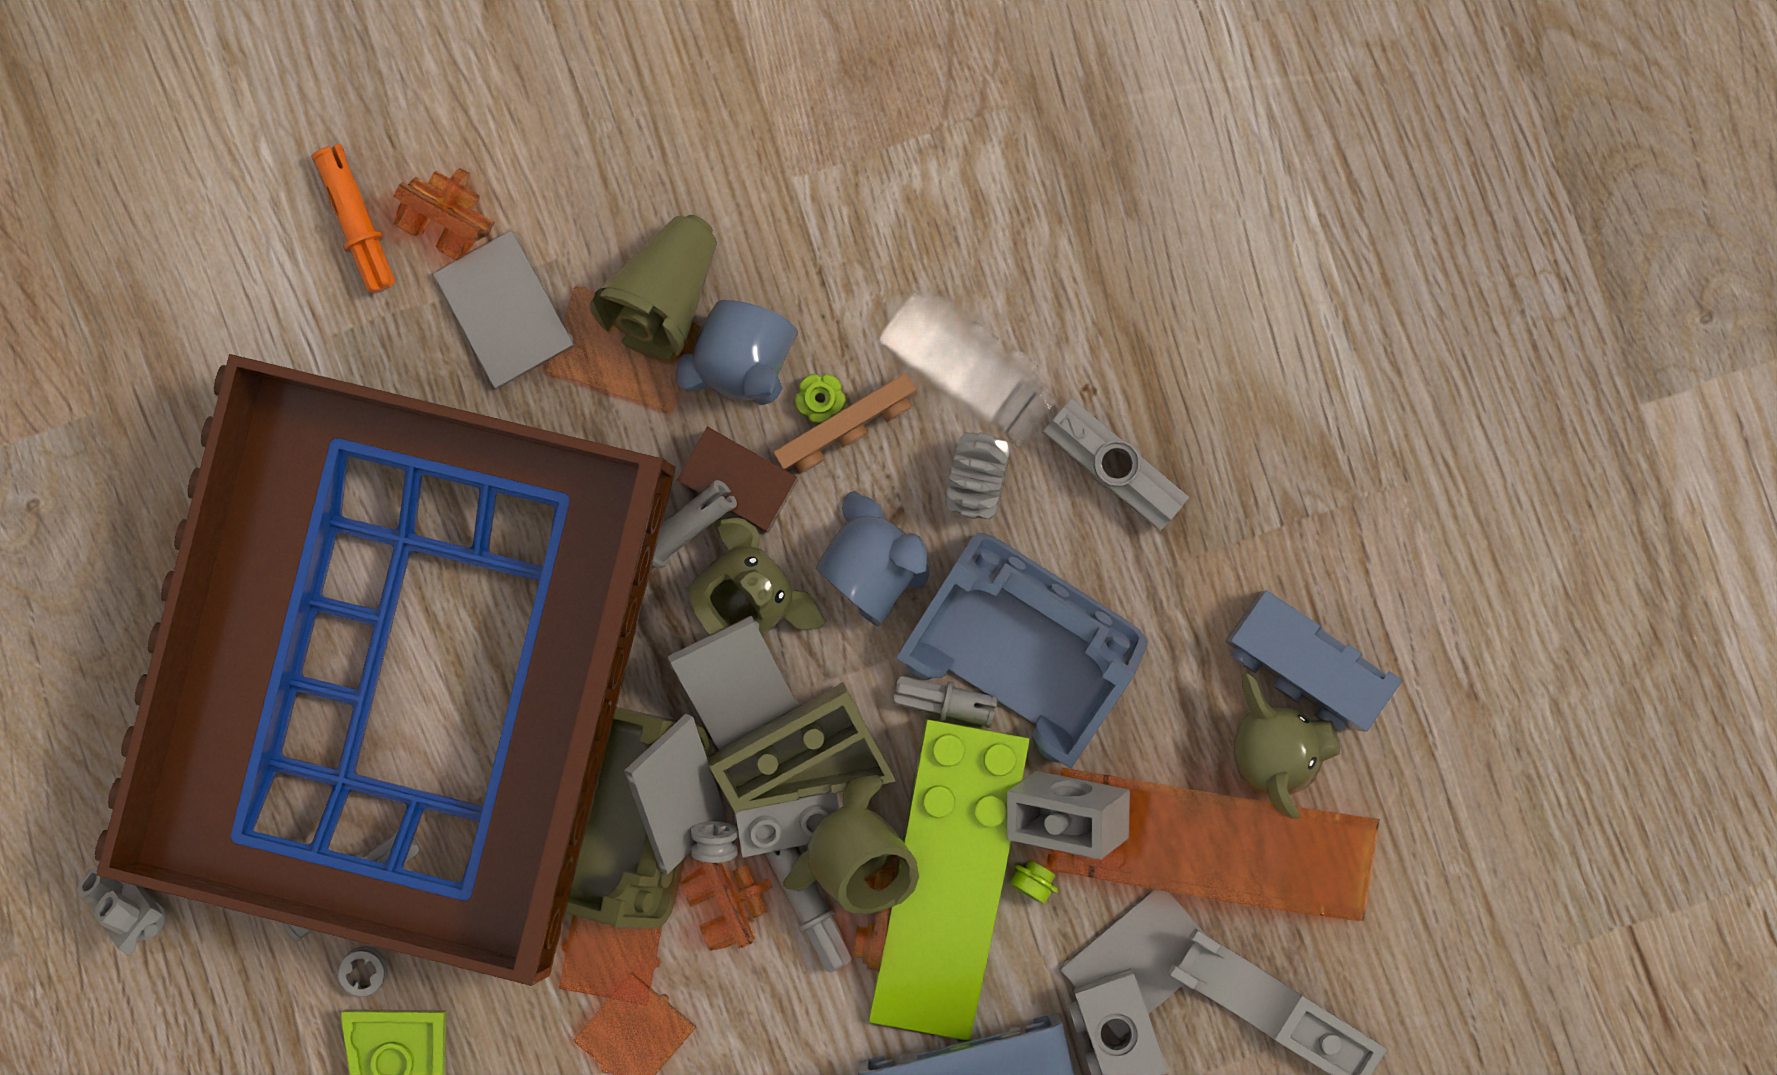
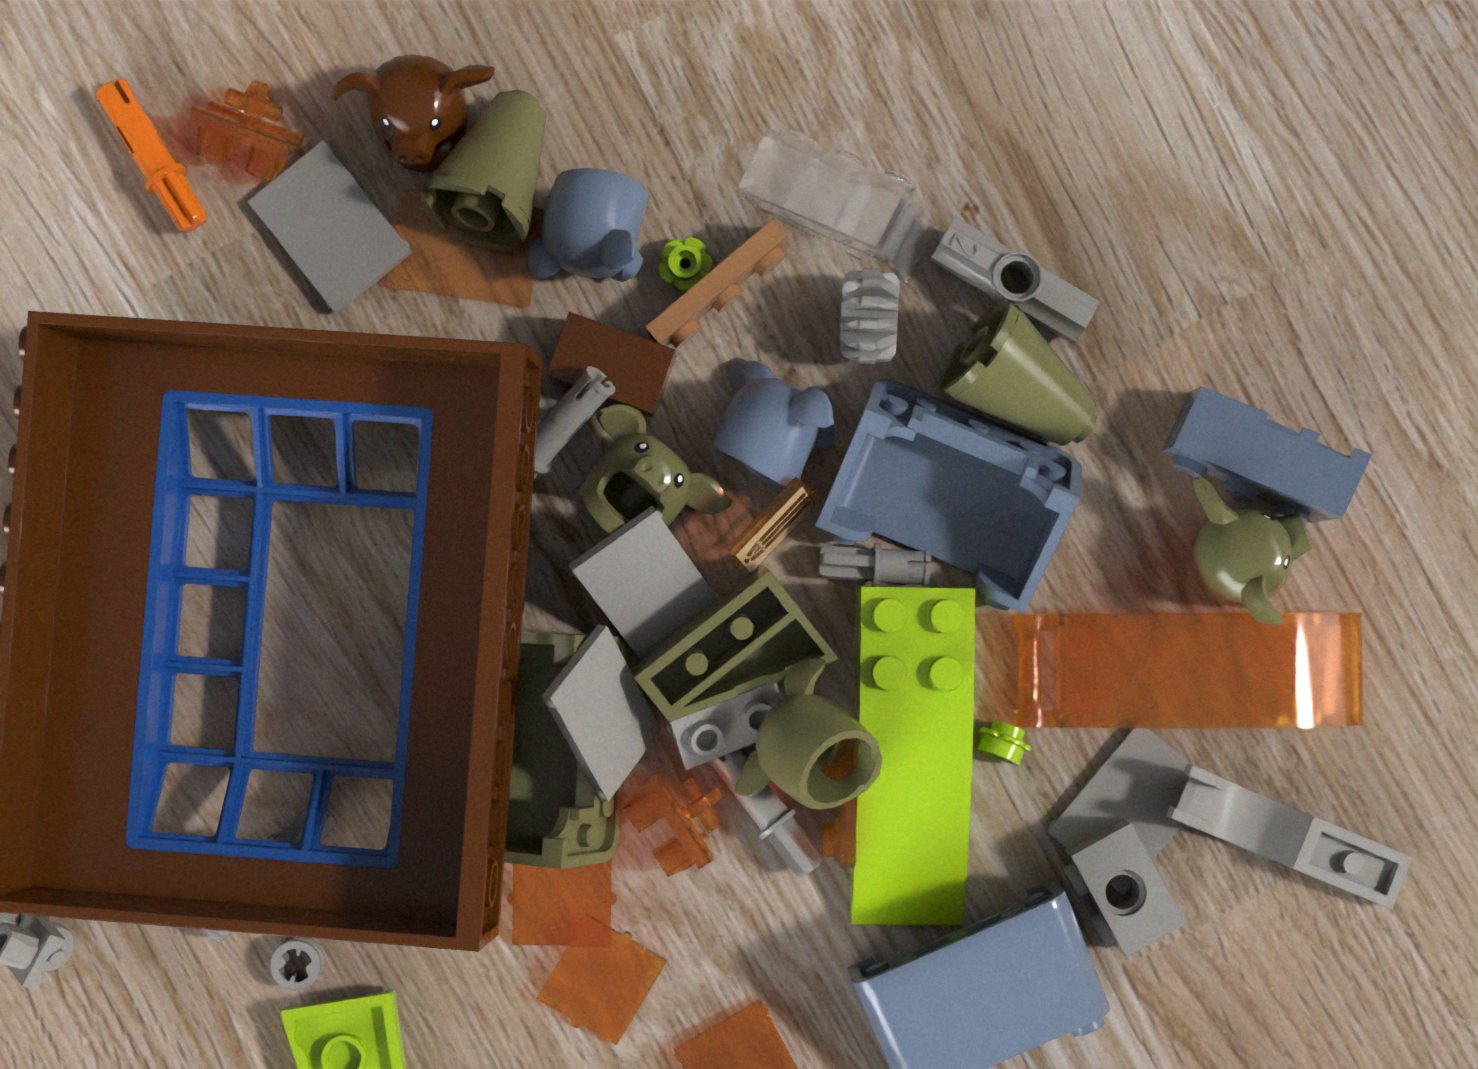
camera: 15 degrees left, 0 degrees up
(601, 217) = (416, 106): none -> reddish brown piece
(714, 841) = (652, 758): light grey bush -> none
(857, 650) = (772, 525): none -> clear orange piece
(1068, 814) = (1032, 663): light grey brick -> none
(1103, 555) = (1019, 378): none -> olive cone

